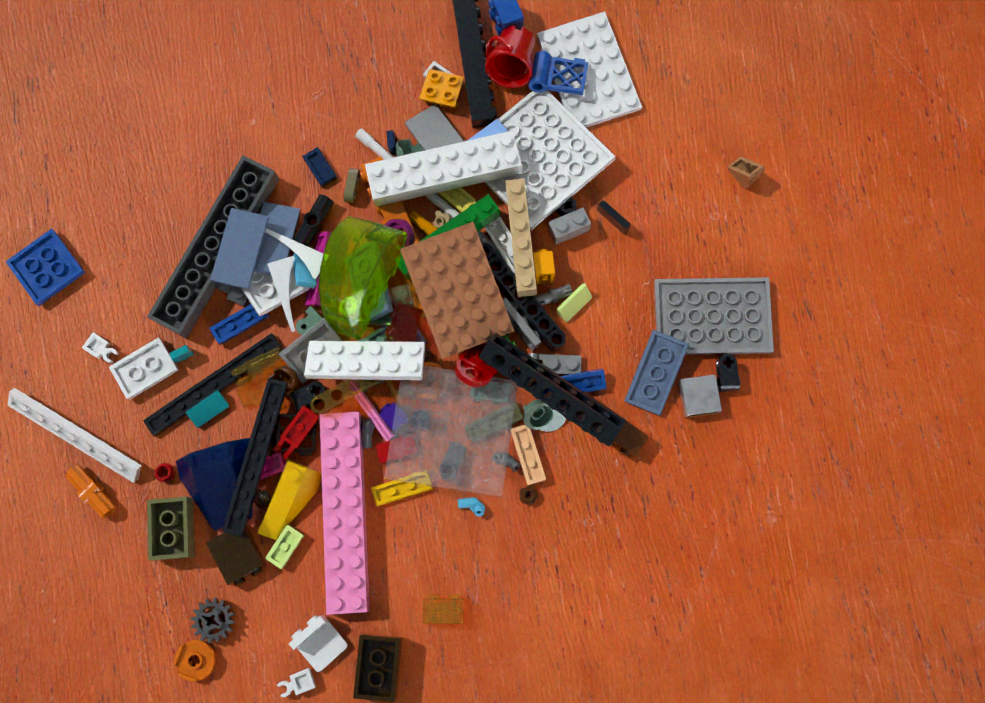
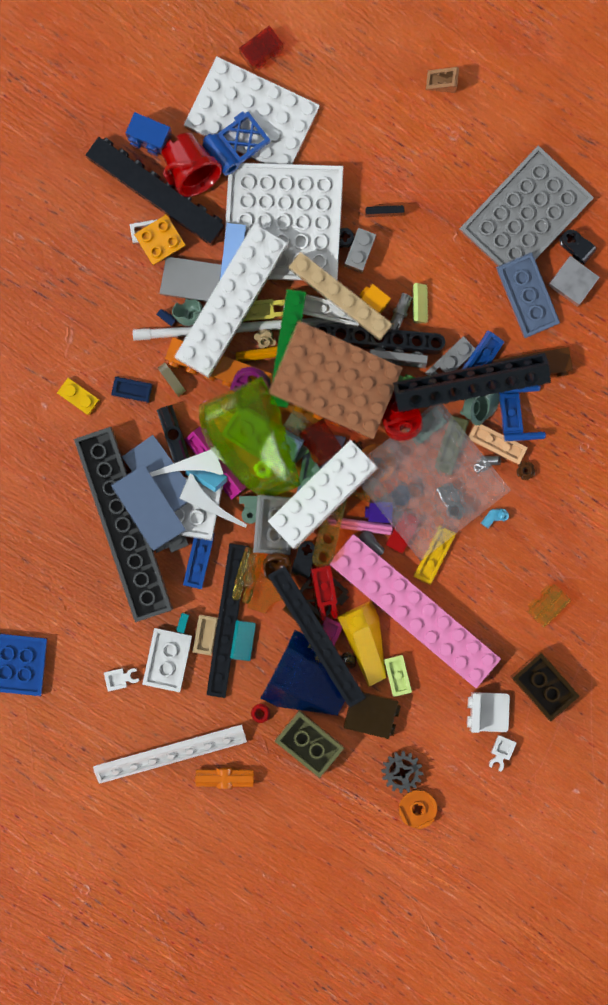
camera: 55 degrees left, 10 degrees up
(187, 378) = (205, 635): none -> tan tile
(280, 136) = (78, 396): none -> yellow plate
(559, 444) = (512, 416): none -> blue plate
(640, 33) = (261, 48): none -> clear red brick

